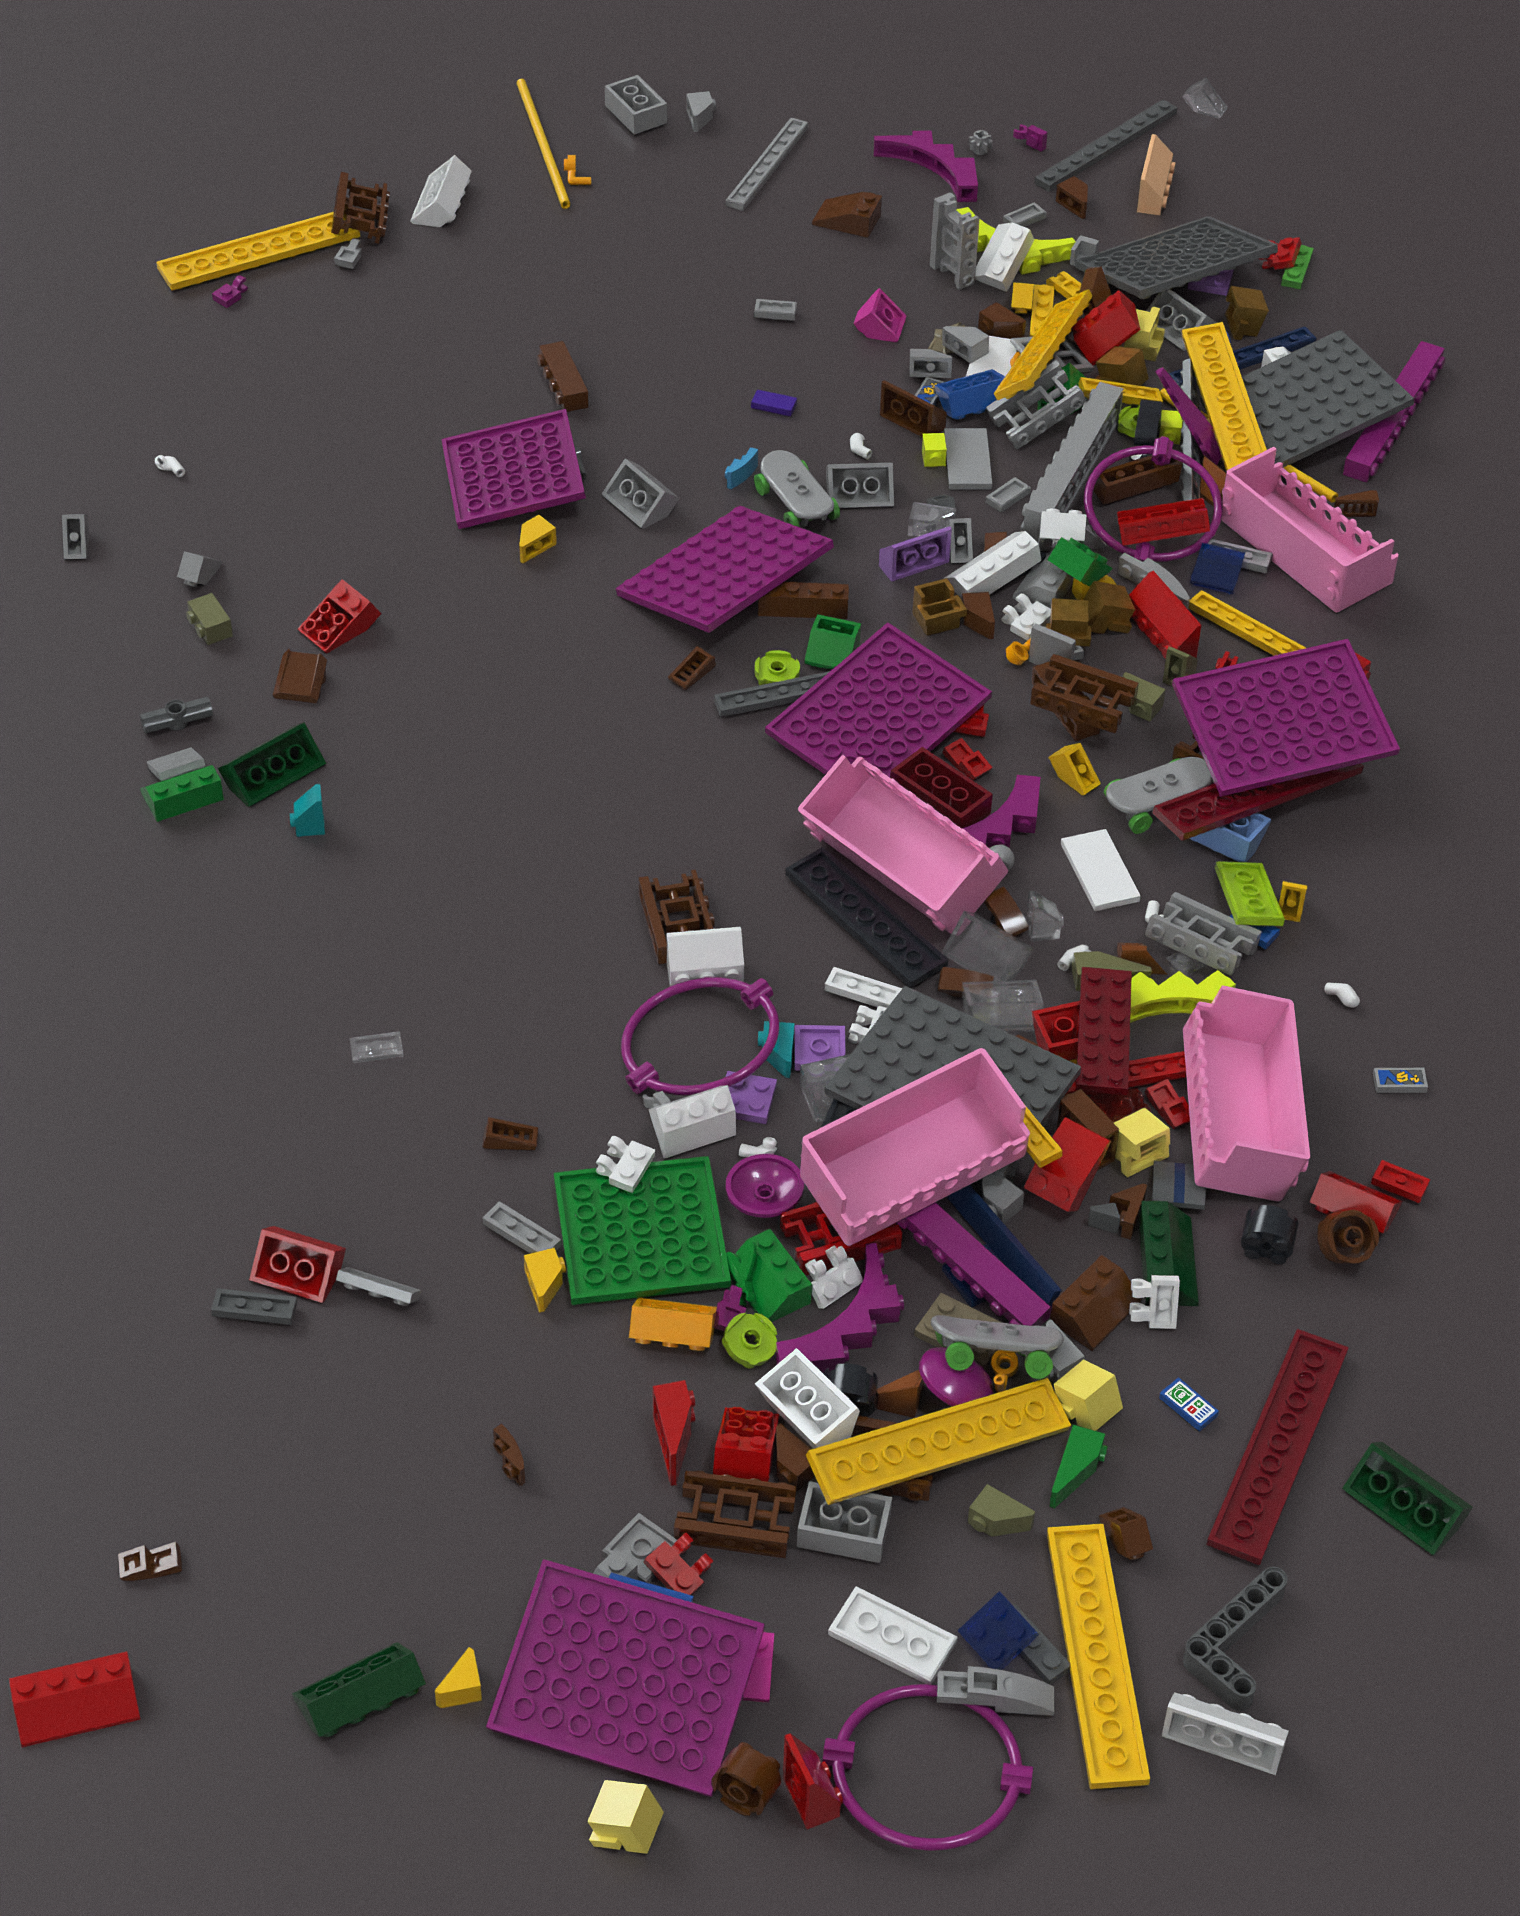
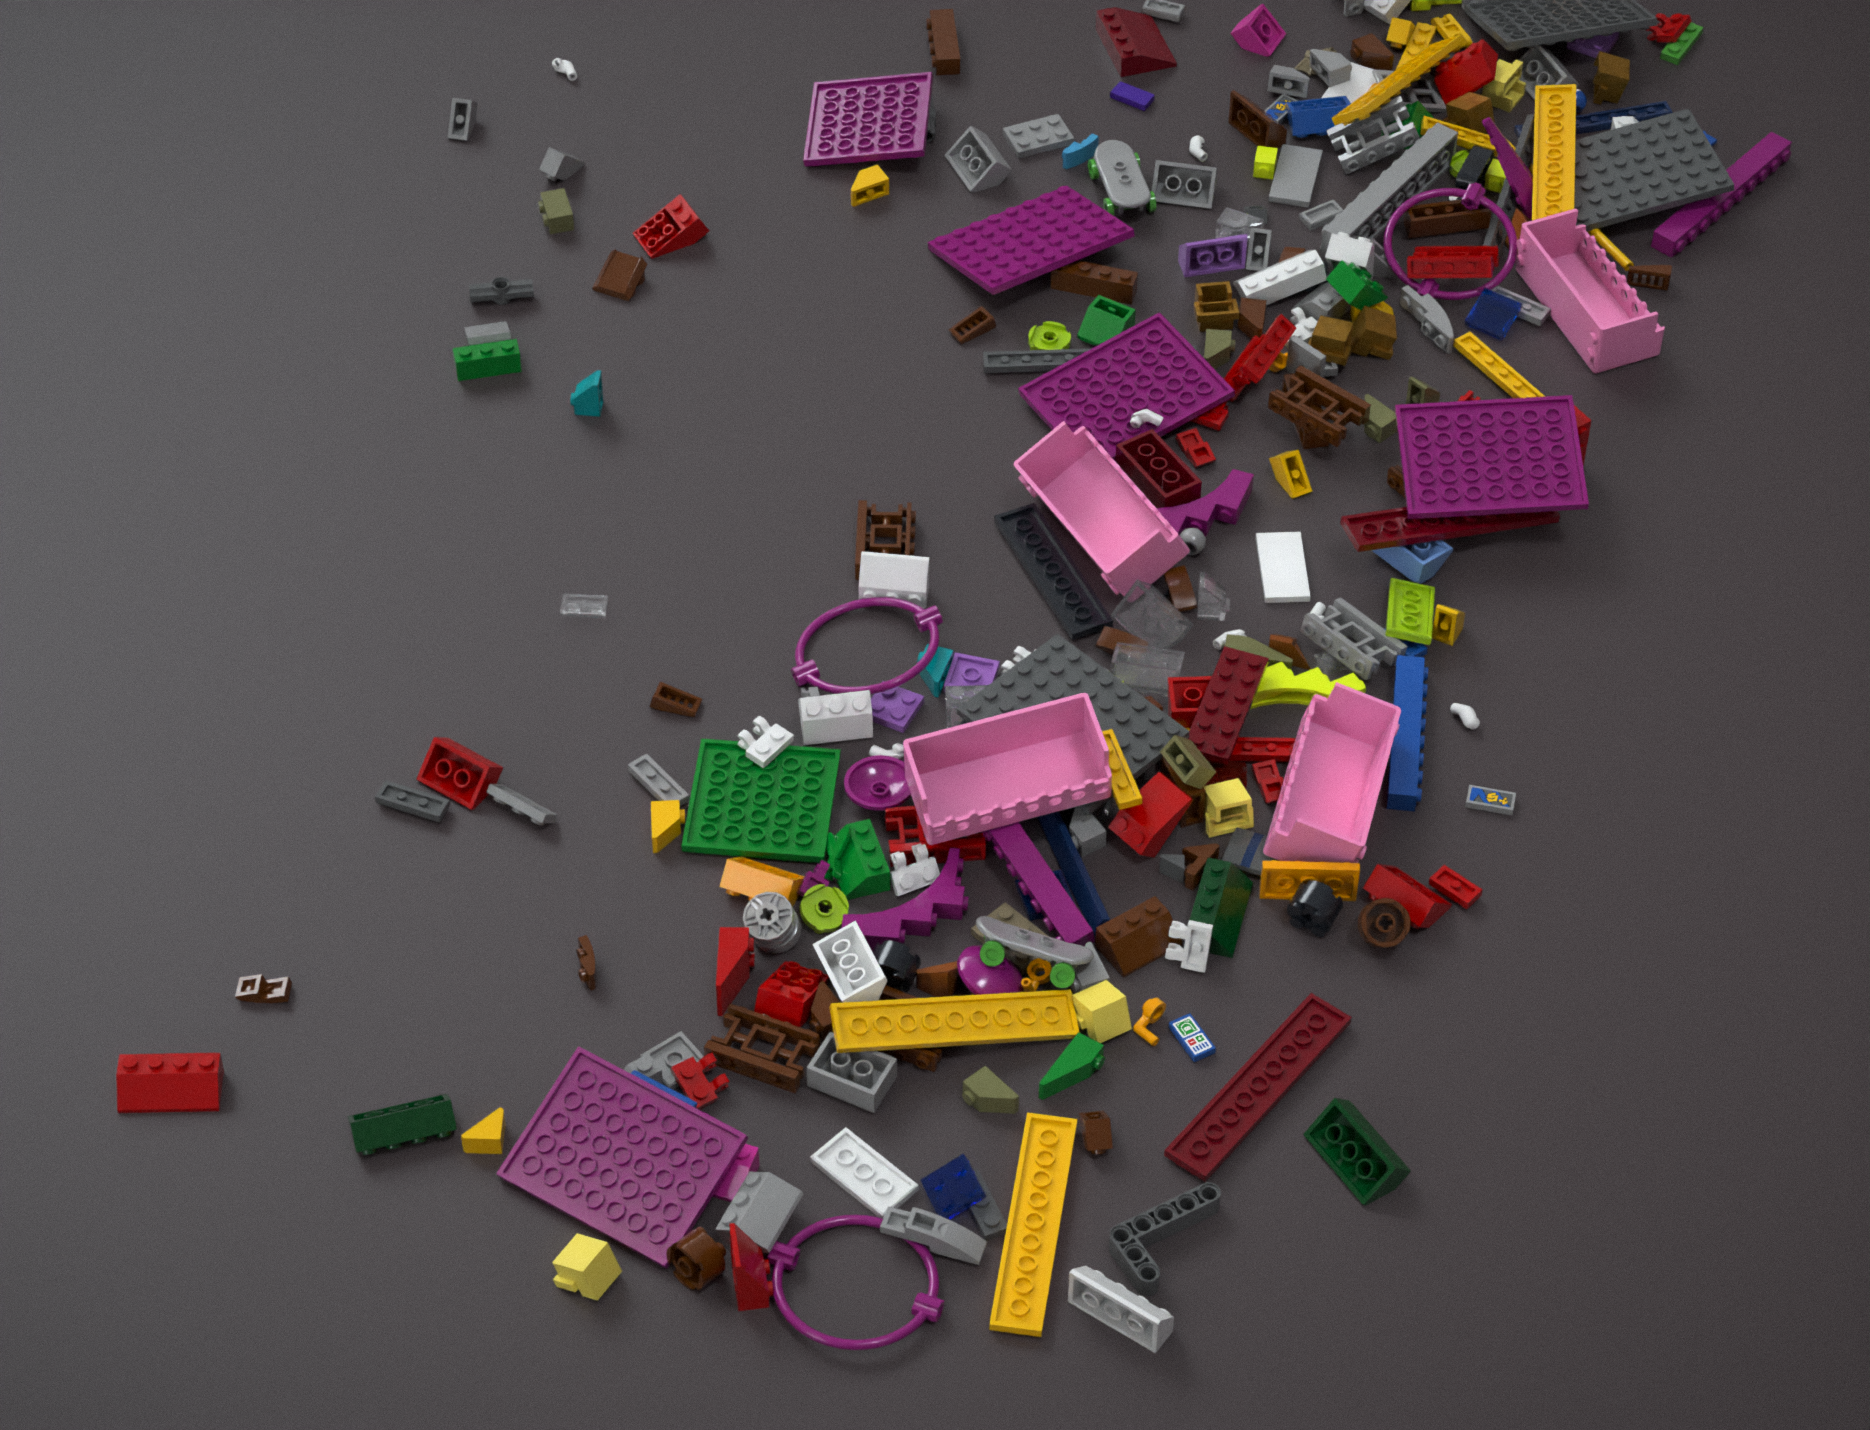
camera: 15 degrees right, 0 degrees up
(272, 764) = (571, 348): dark green slope -> none
(691, 459) = (1038, 136): none -> light grey plate
(706, 1382) = (778, 933): none -> light grey wheel
(755, 347) = (1133, 41): none -> dark red slope
(799, 1703) = (760, 1209): none -> light grey slope
(860, 988) = (1022, 629): white plate -> none
(909, 734) = (1145, 416): none -> white arm
(954, 647) = (1218, 347): none -> olive slope
(1004, 649) = (1259, 355): none -> red fence
(1095, 1101) = (1187, 761): none -> olive brick
(1096, 282) = (1471, 31): reddish brown slope -> none
(1138, 1383) = (1152, 1011): none -> light orange plate
(1143, 791) = (1350, 500): light grey piece -> none
(1164, 617) = (1422, 349): red slope -> none
(1229, 1208) = (1283, 878): none -> light orange plate
(1279, 979) = (1406, 746): none -> blue brick

